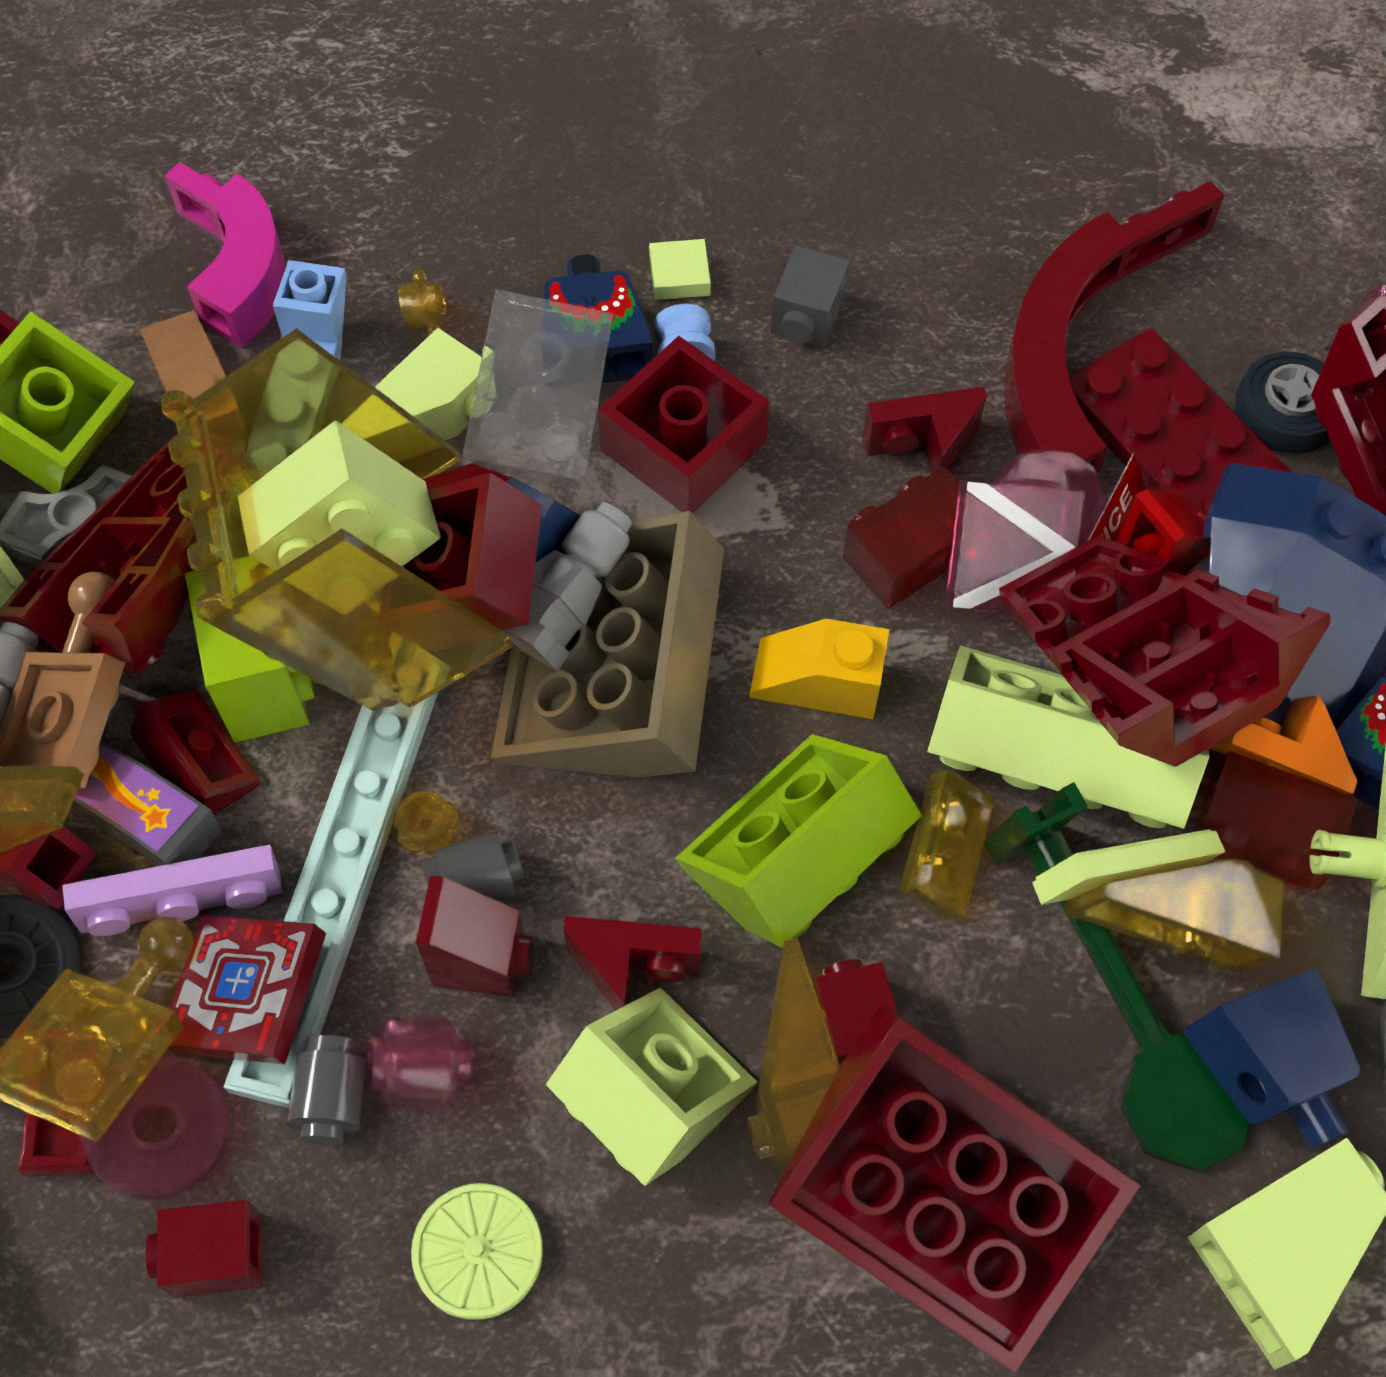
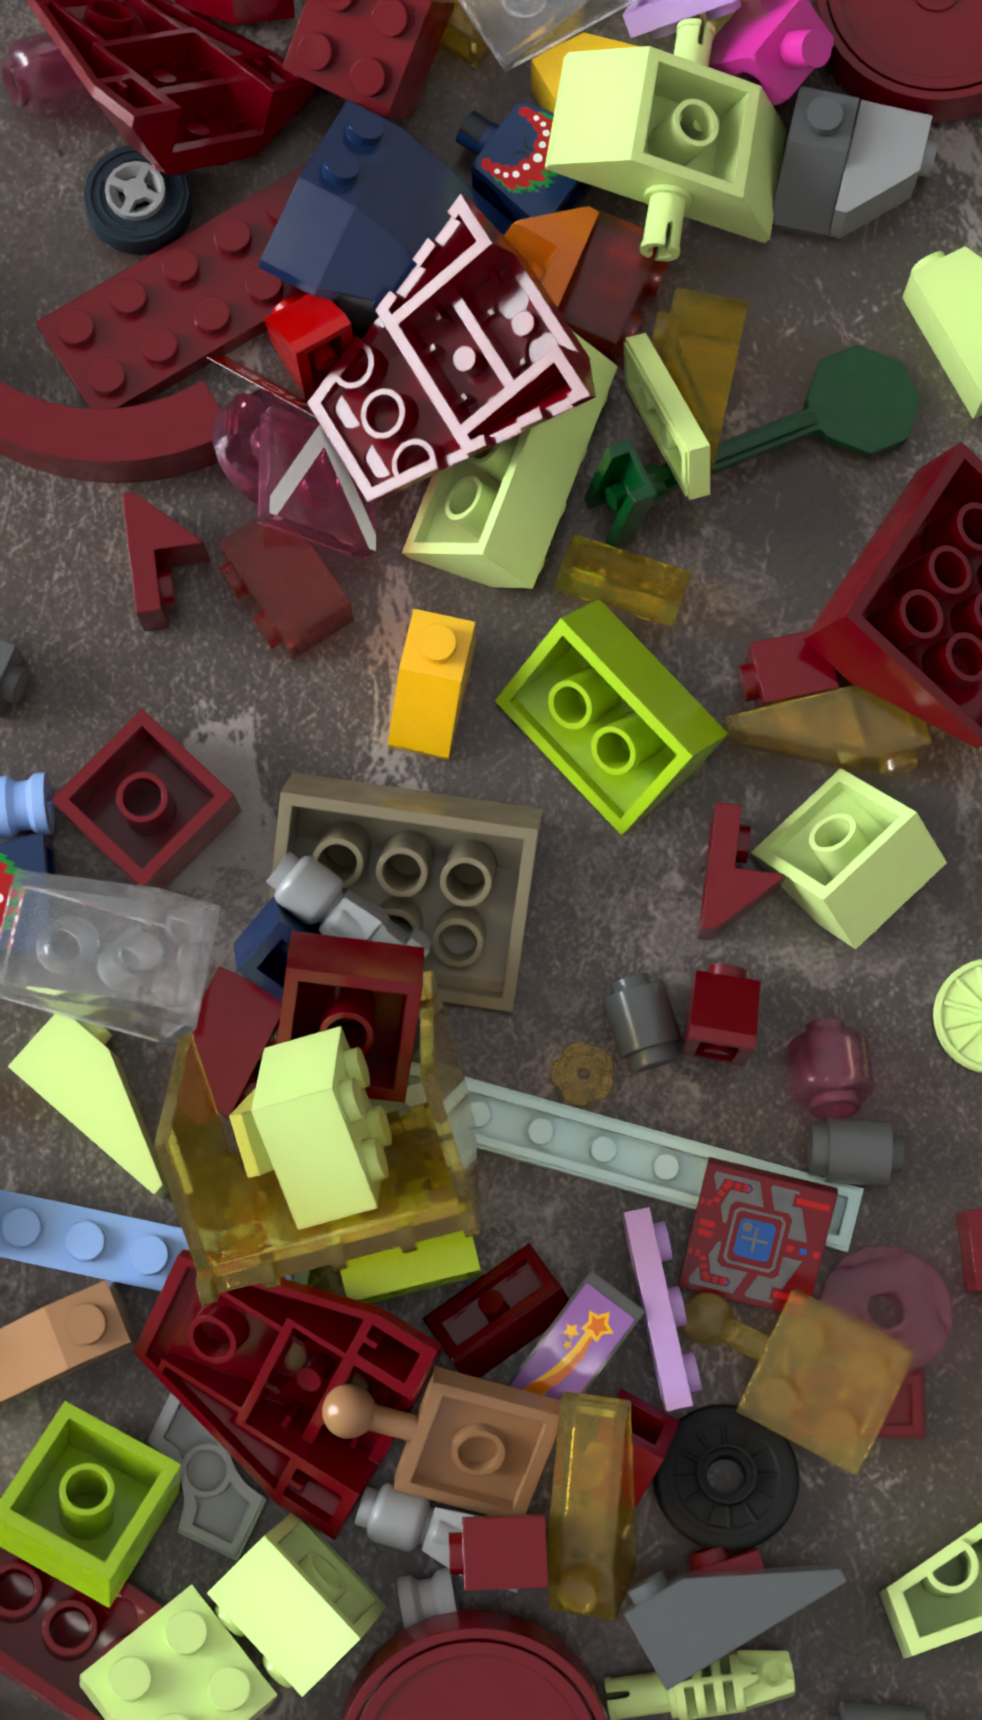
camera: 85 degrees left, 15 degrees up
(1280, 1054) = (830, 315): dark blue torso -> none

